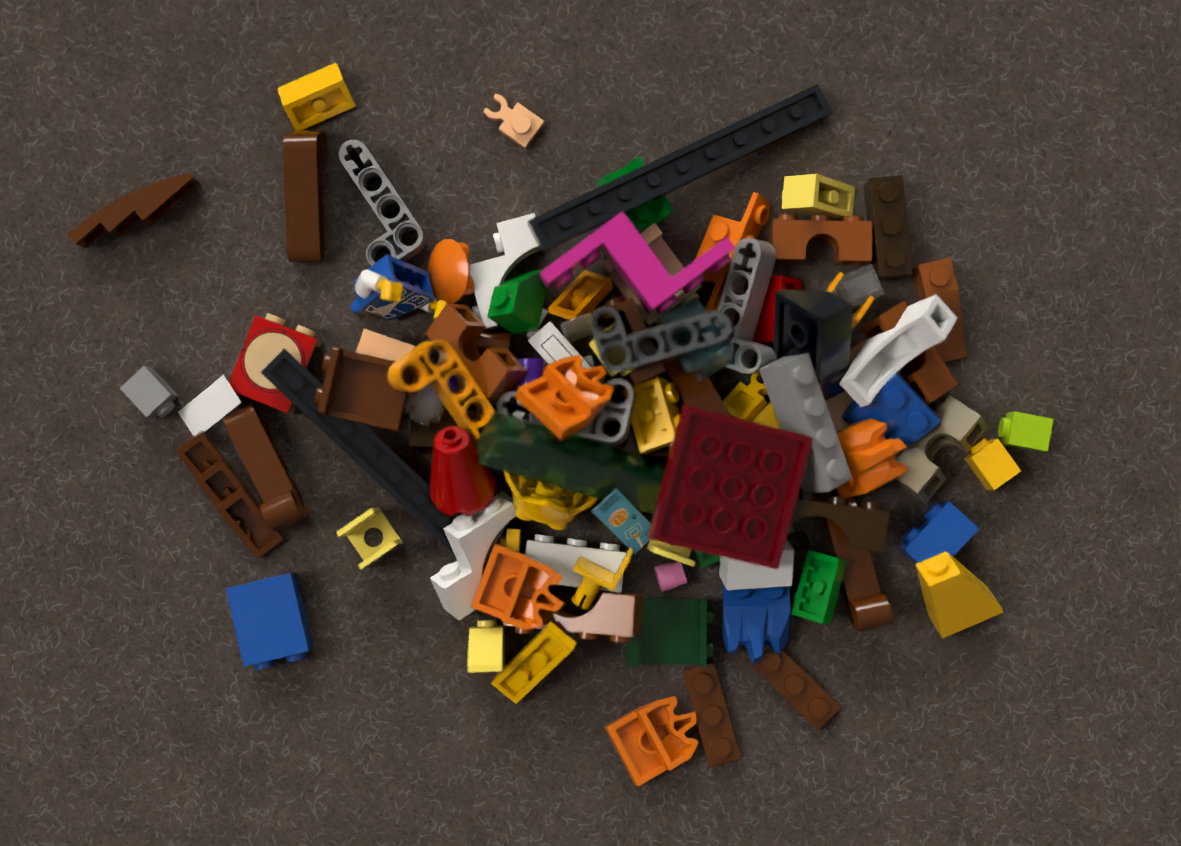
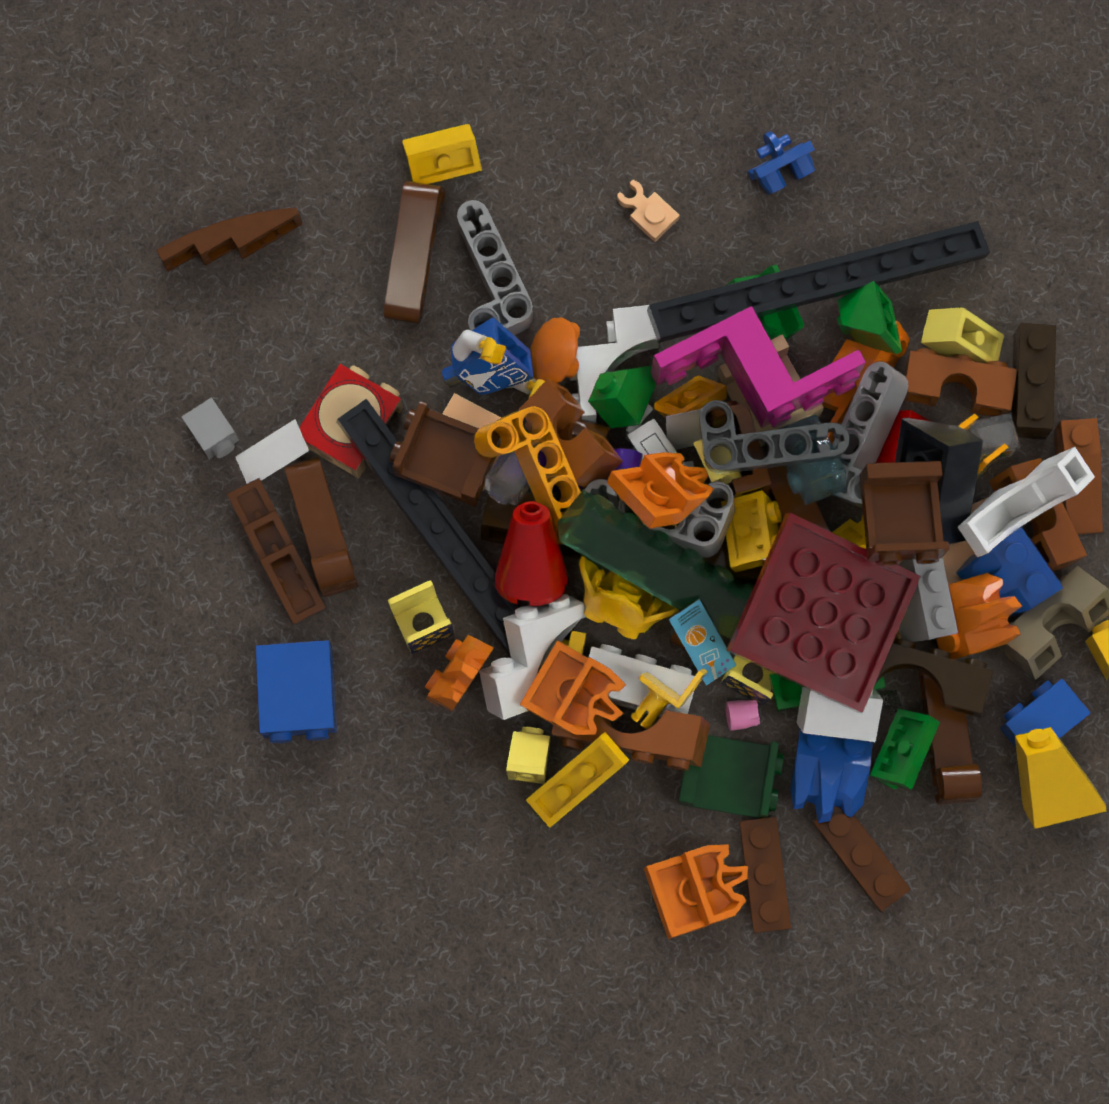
camera: 10 degrees right, 10 degrees down
(413, 584) = (465, 662): none -> orange plate
(642, 47) = (796, 157): none -> blue hips
(732, 195) = (870, 318): none -> green slope
(789, 386) = (902, 512): none -> reddish brown panel

